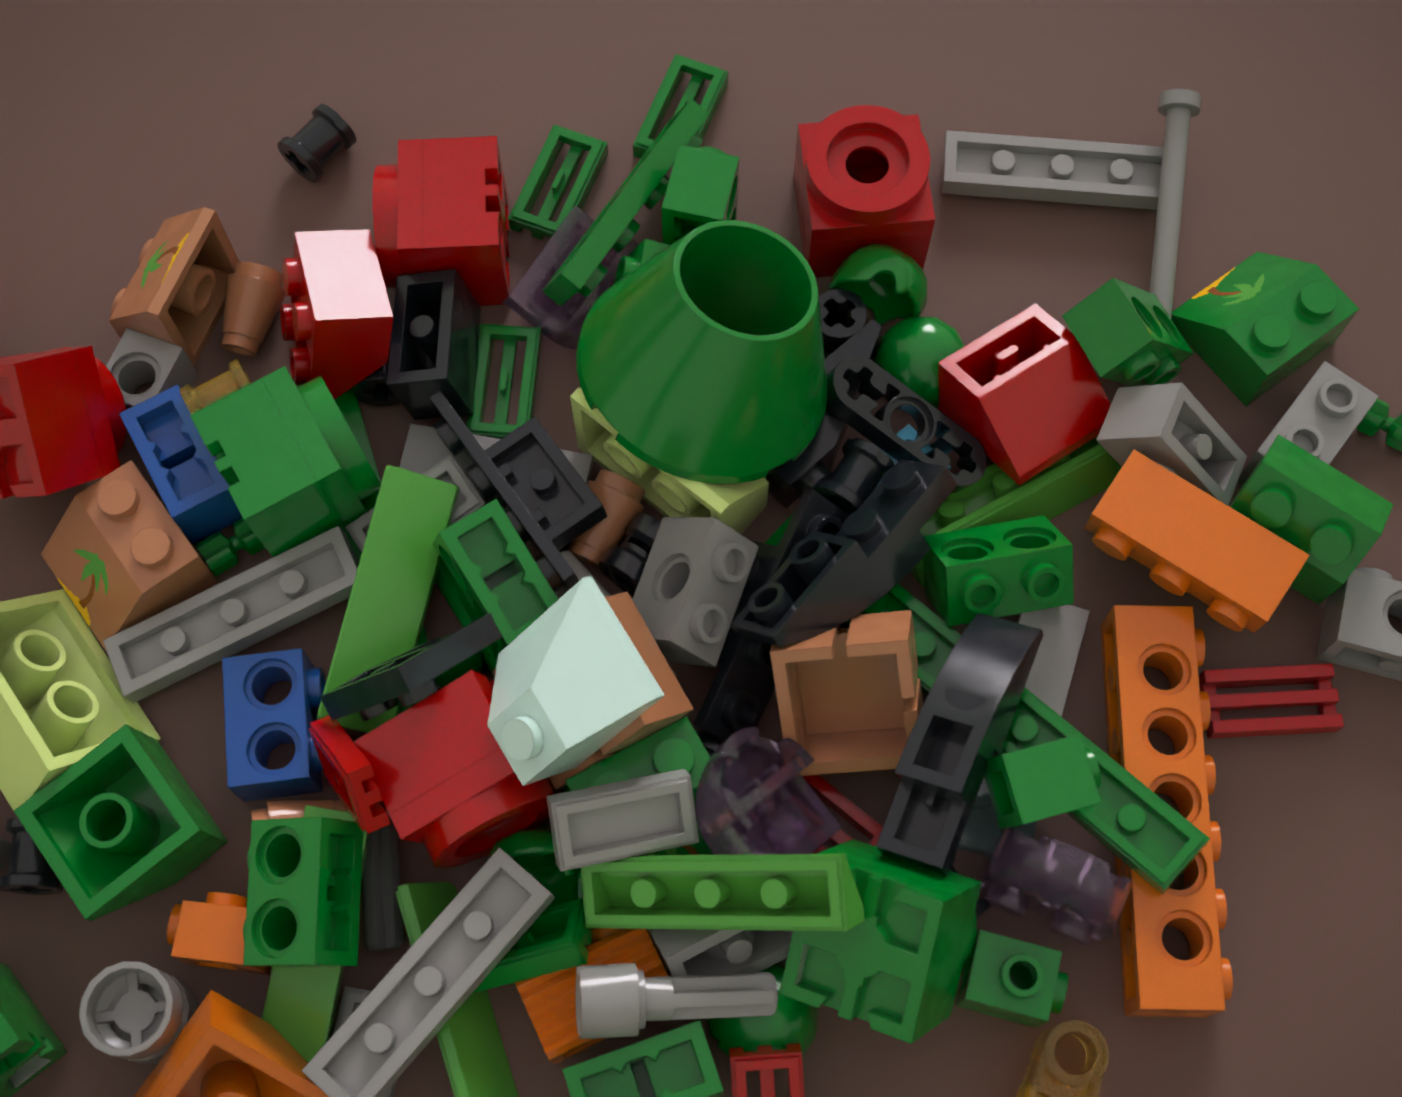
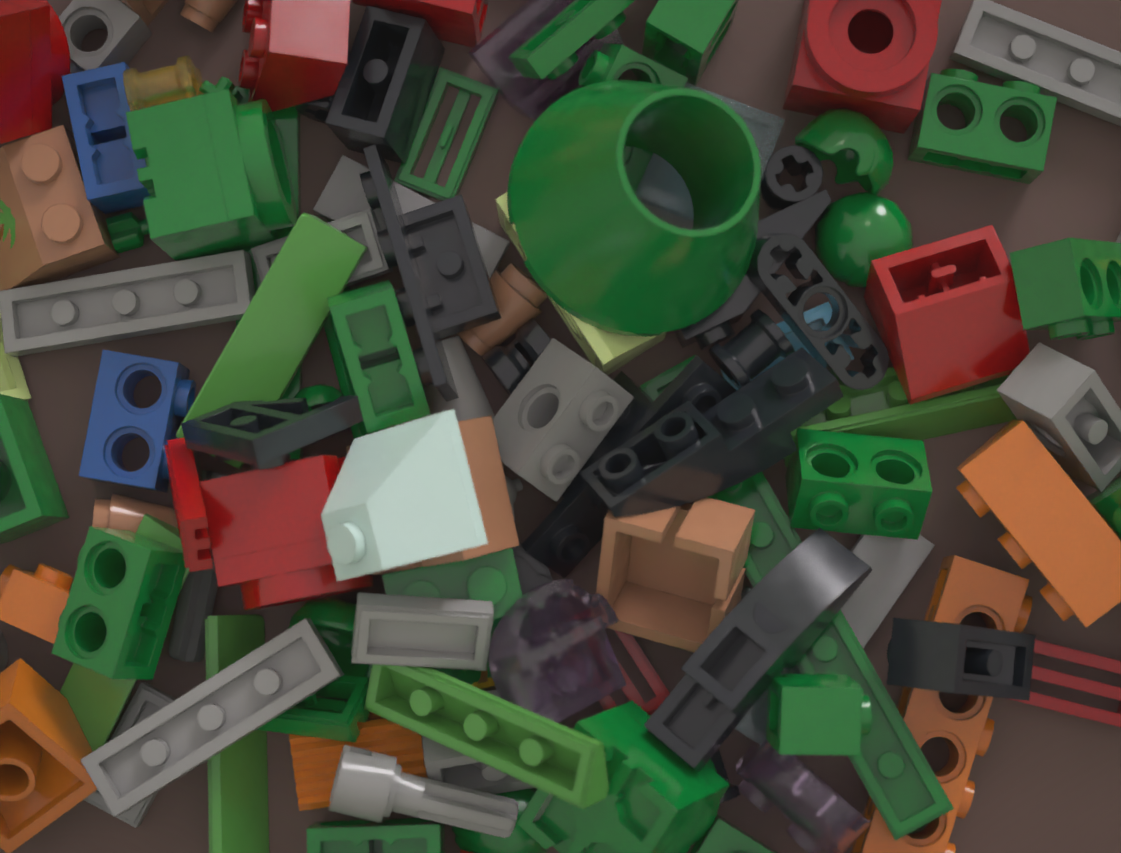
camera: 20 degrees right, 15 degrees up
(995, 250) = (981, 144): none -> green brick
(1157, 691) = (960, 659): none -> black slope

